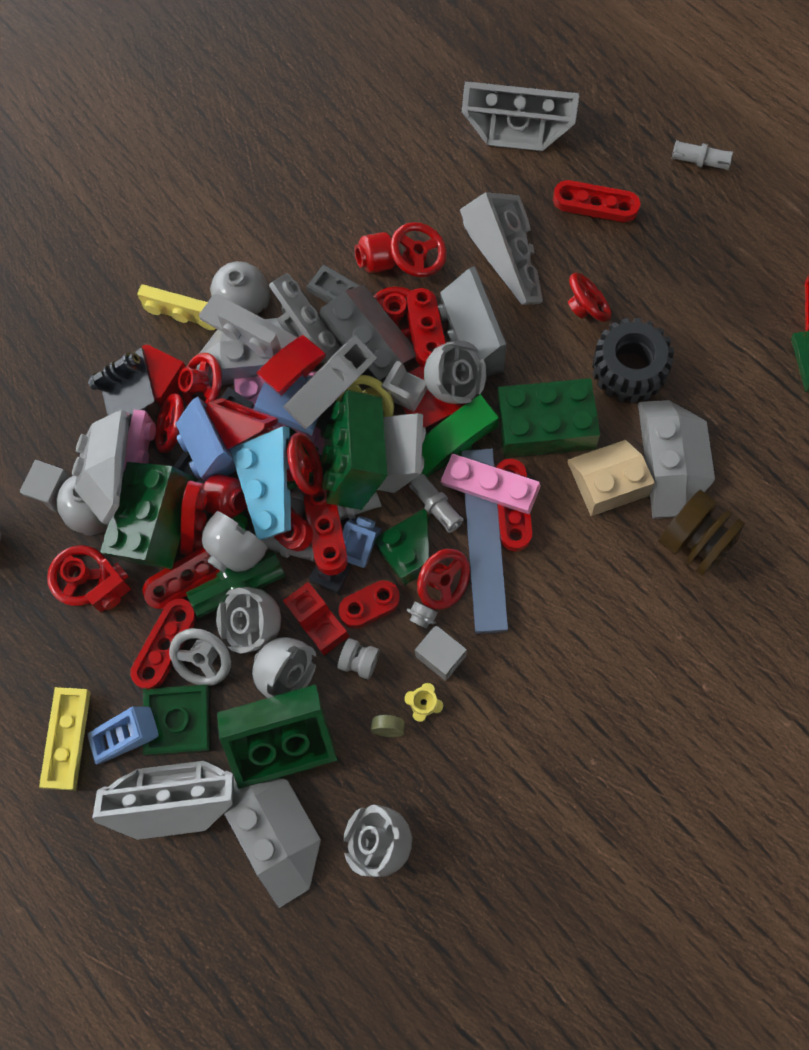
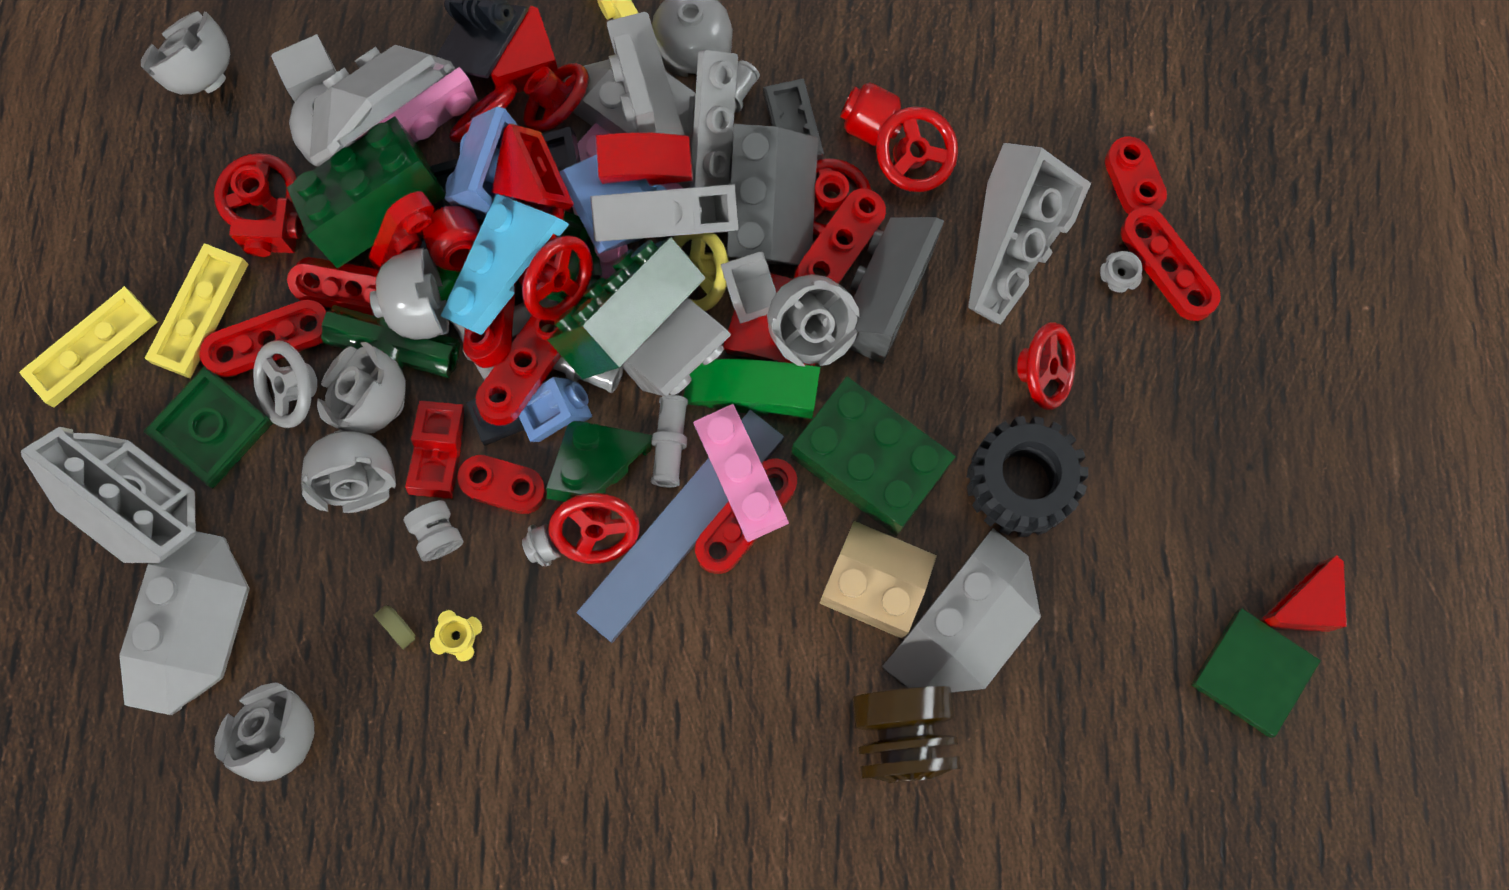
camera: 35 degrees right, 5 degrees up
(109, 665) = (196, 310): none -> light yellow plate
(141, 728) = (147, 393): medium blue slope -> none
(276, 736) = (270, 534): dark green brick -> none
(440, 653) = (516, 602): light grey panel -> none
(518, 114) = (1177, 90): light grey wedge -> none
(536, 174) = (1132, 175): none -> red plate
(576, 218) = (1129, 263): none -> light grey plate
(702, 155) = (1345, 315): light grey pin -> none

